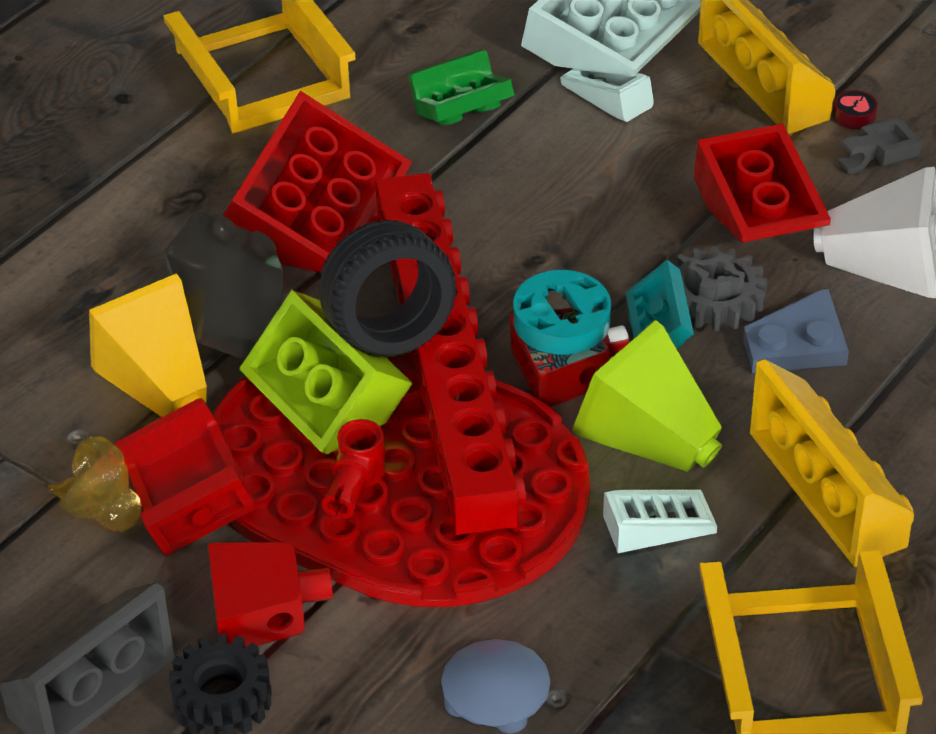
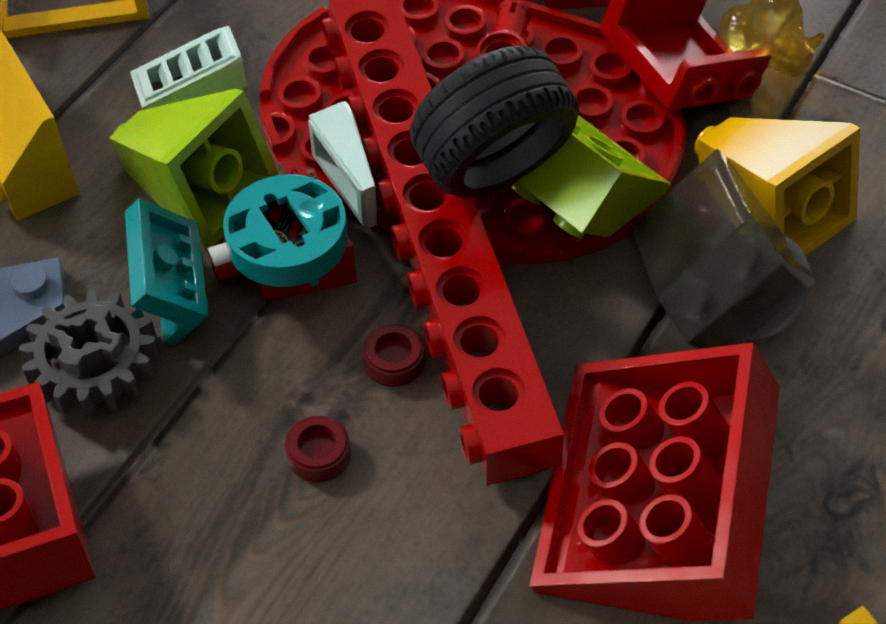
camera: 175 degrees right, 10 degrees up
(487, 288) = (394, 355): none -> dark red tile
(514, 384) = (342, 157): none -> light aqua slope
(545, 238) = (318, 449): none -> dark red tile

